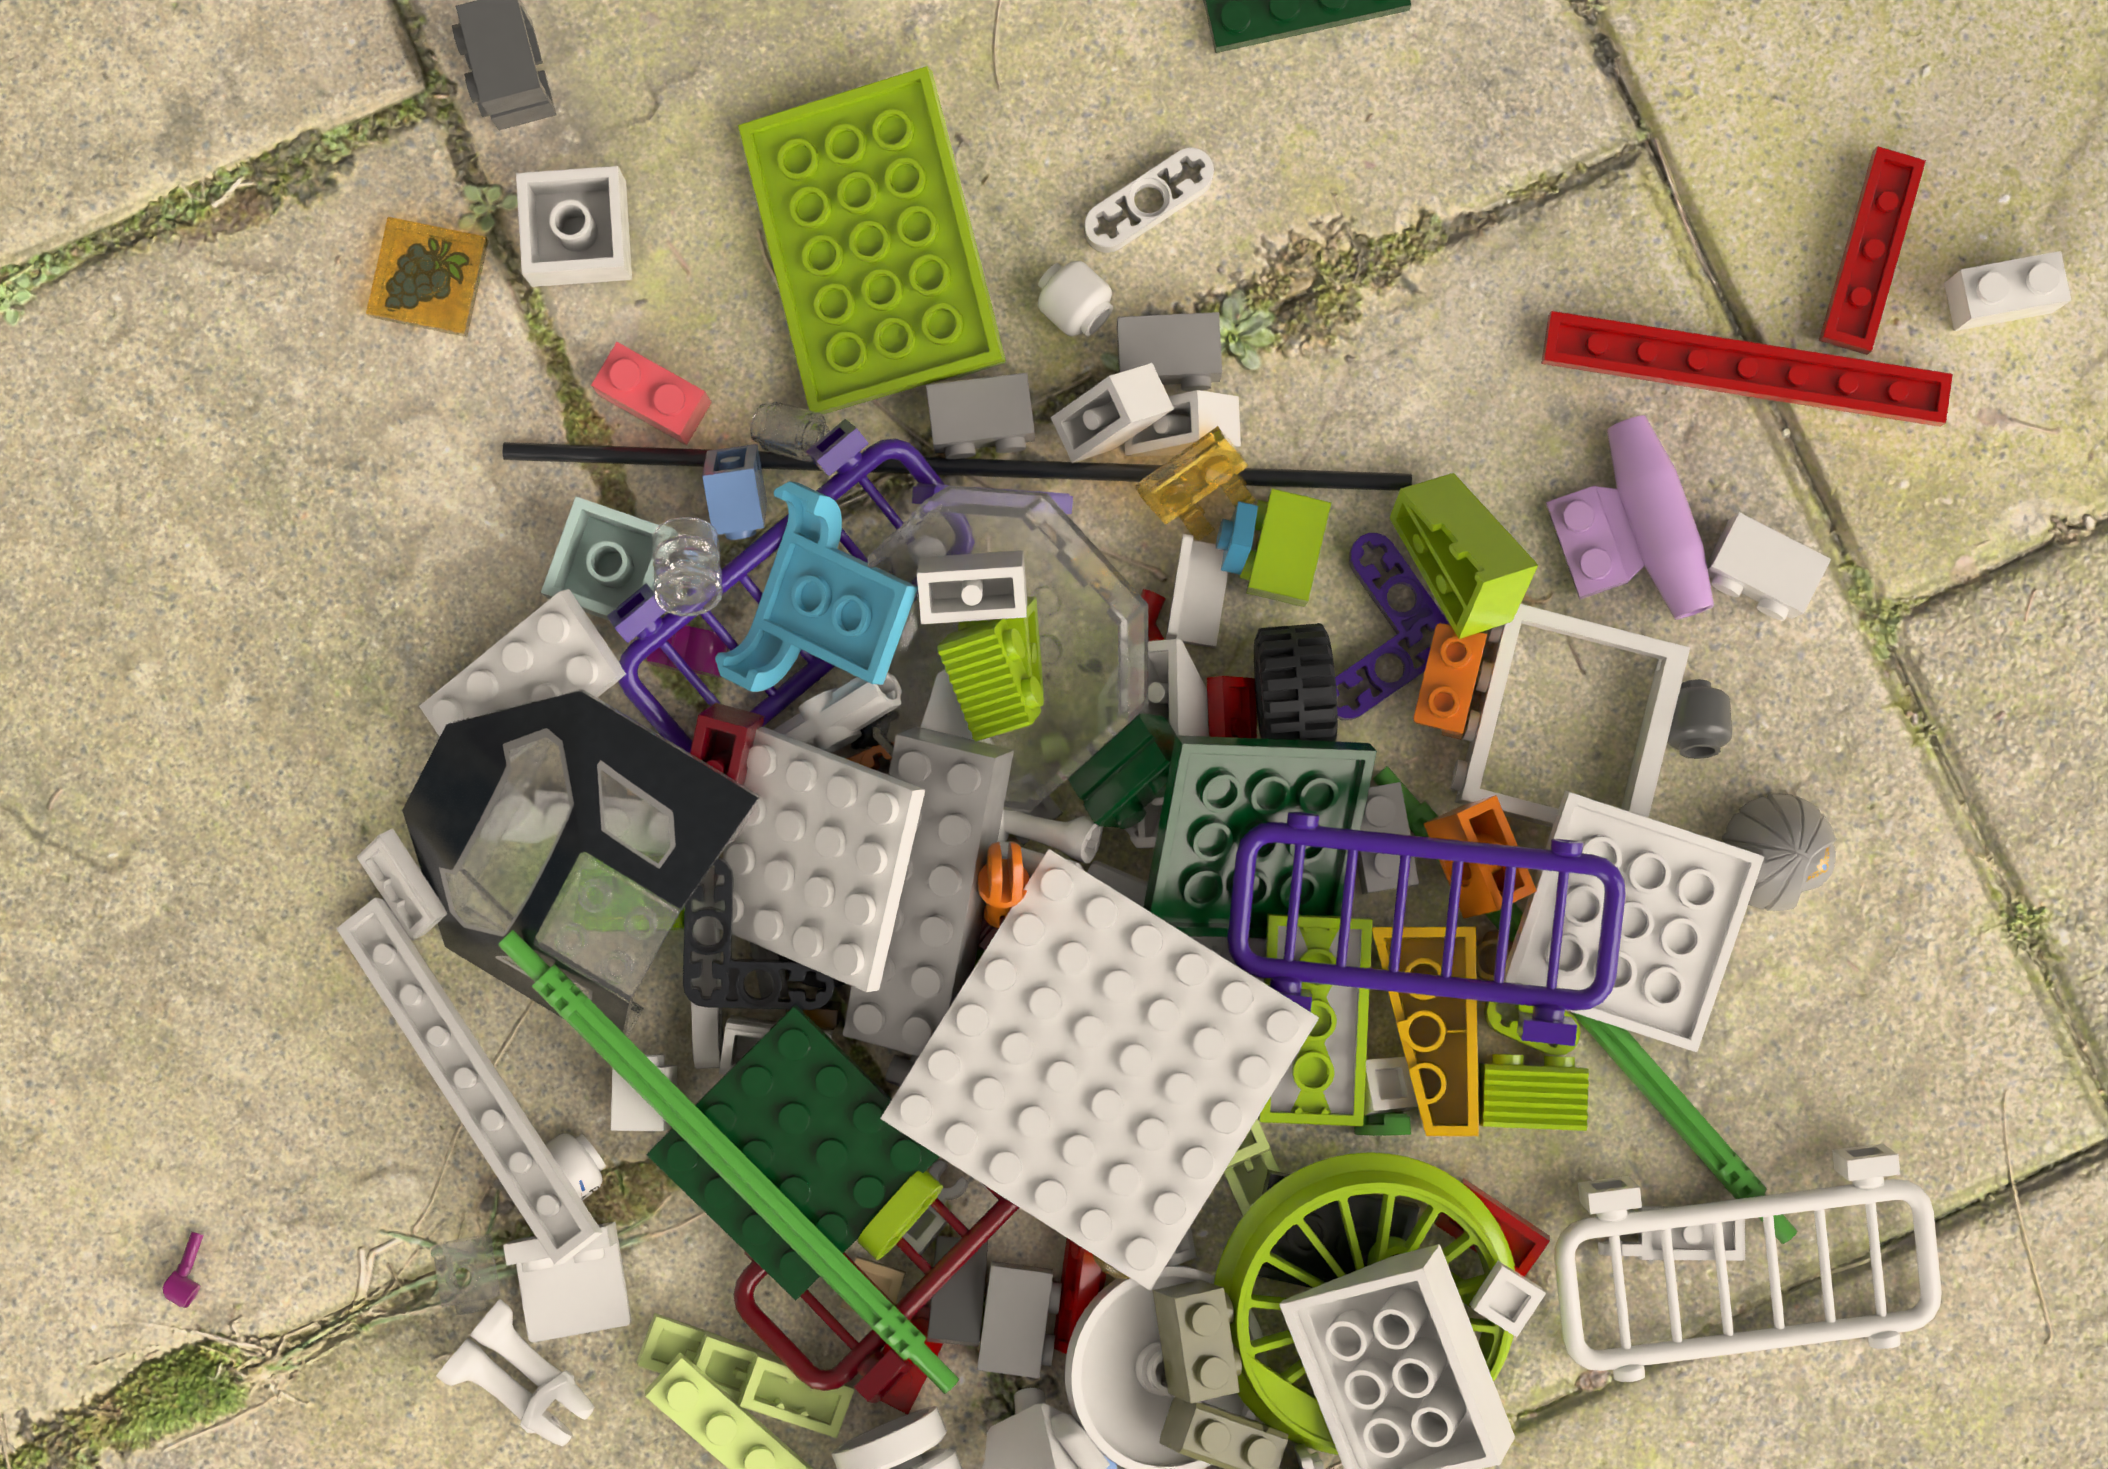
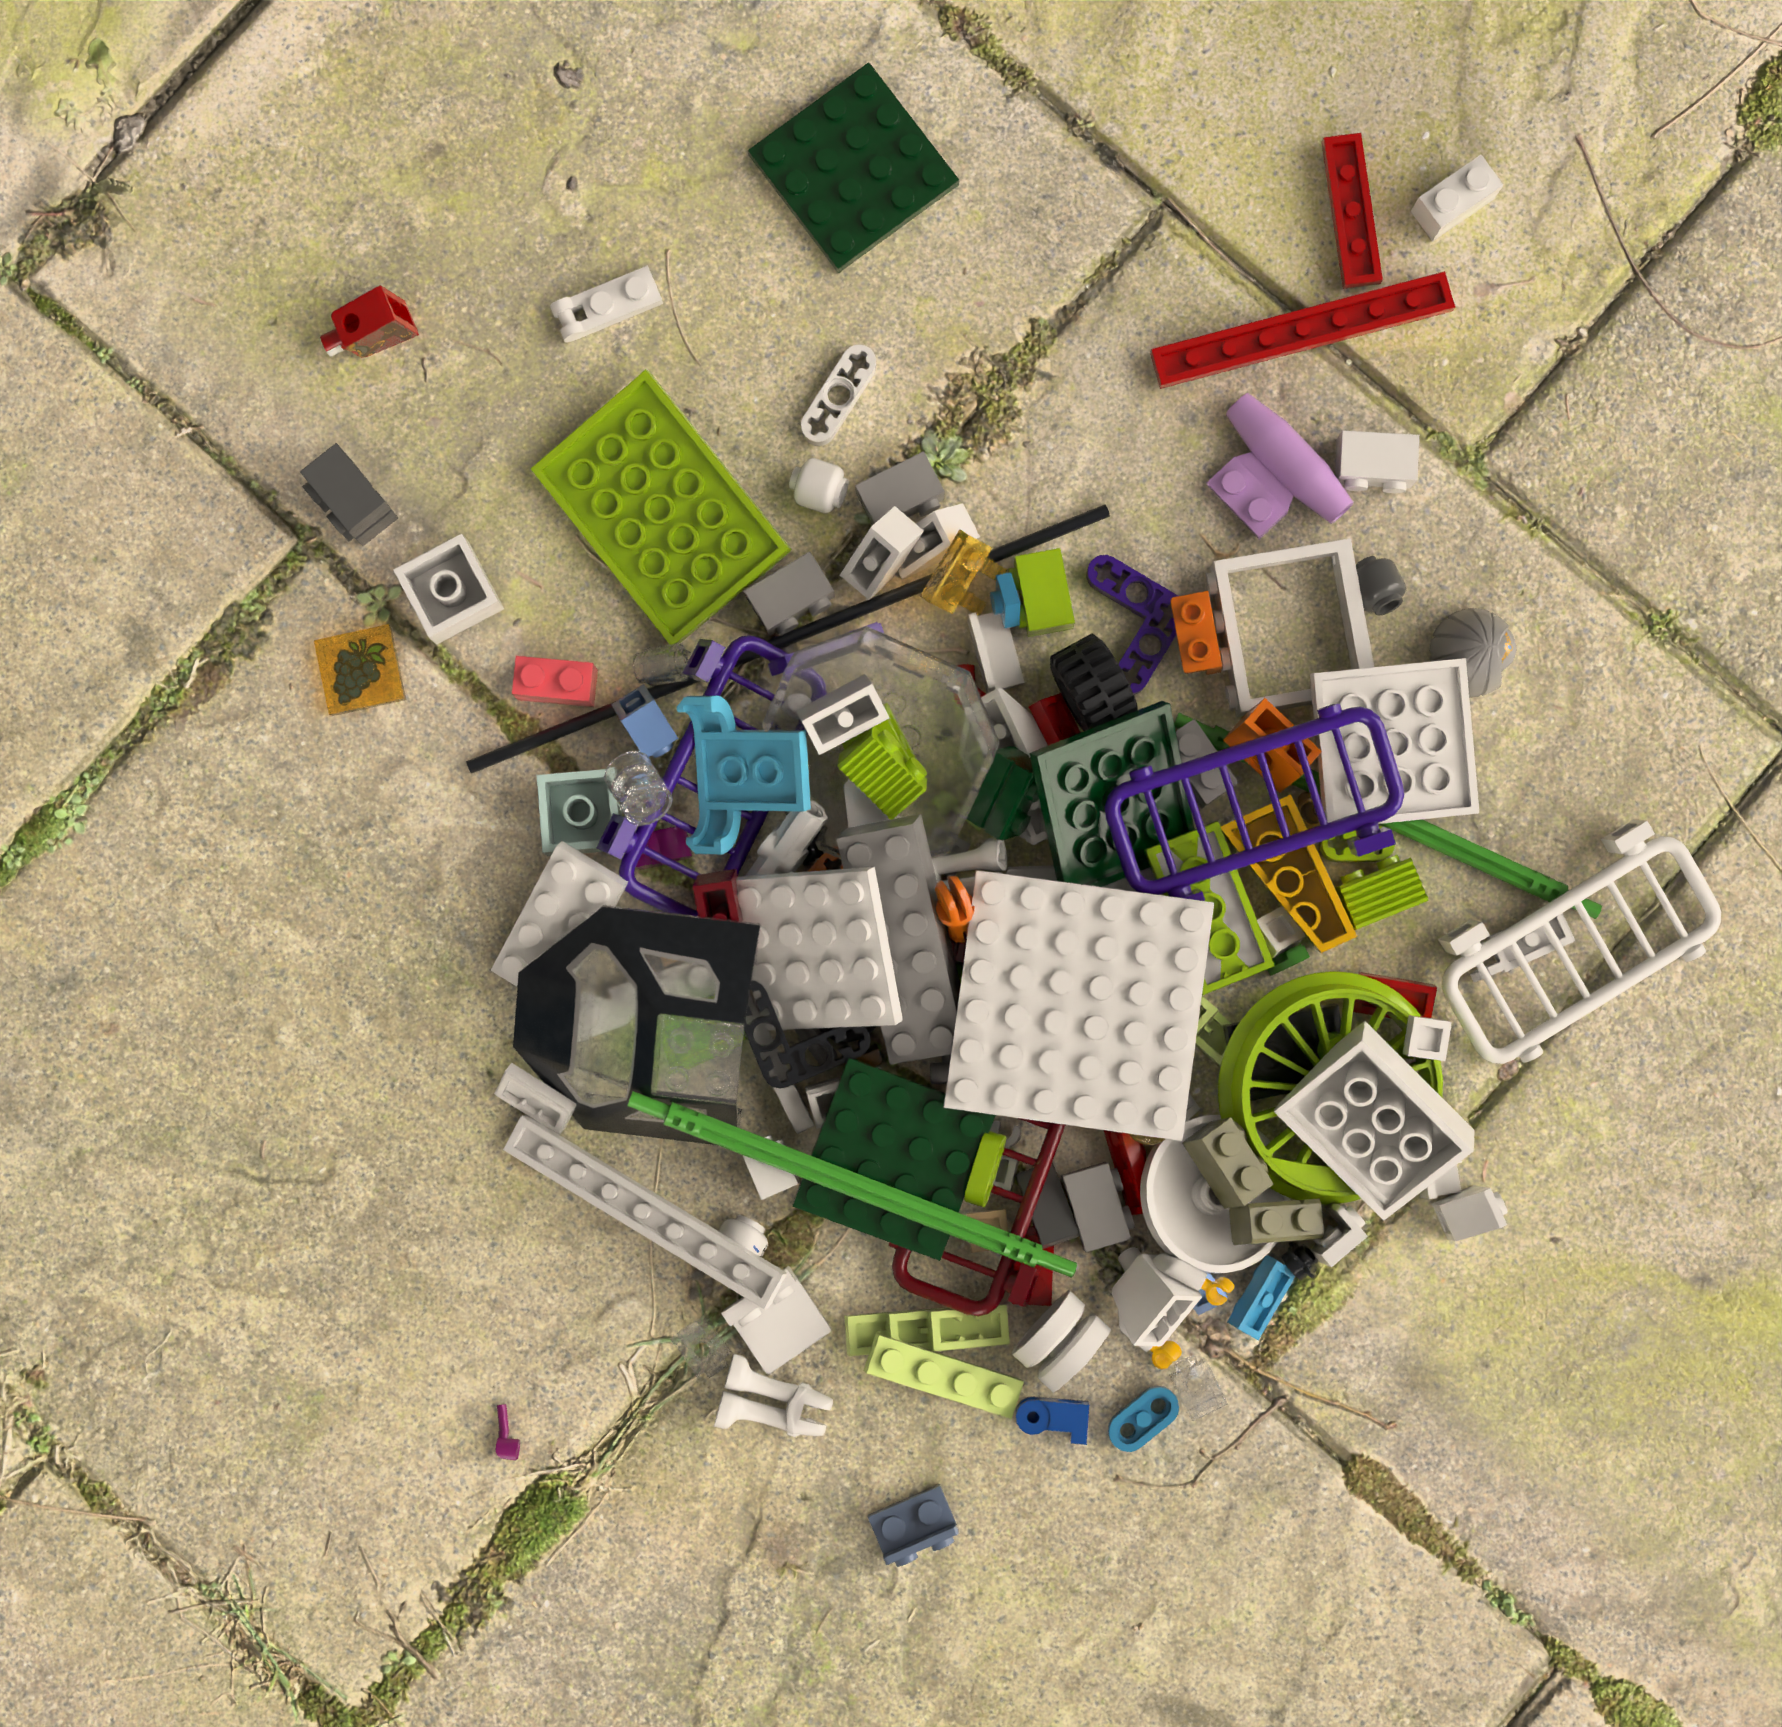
camera: 25 degrees left, 0 degrees up
(1463, 554) = (1167, 542): lime wedge -> none

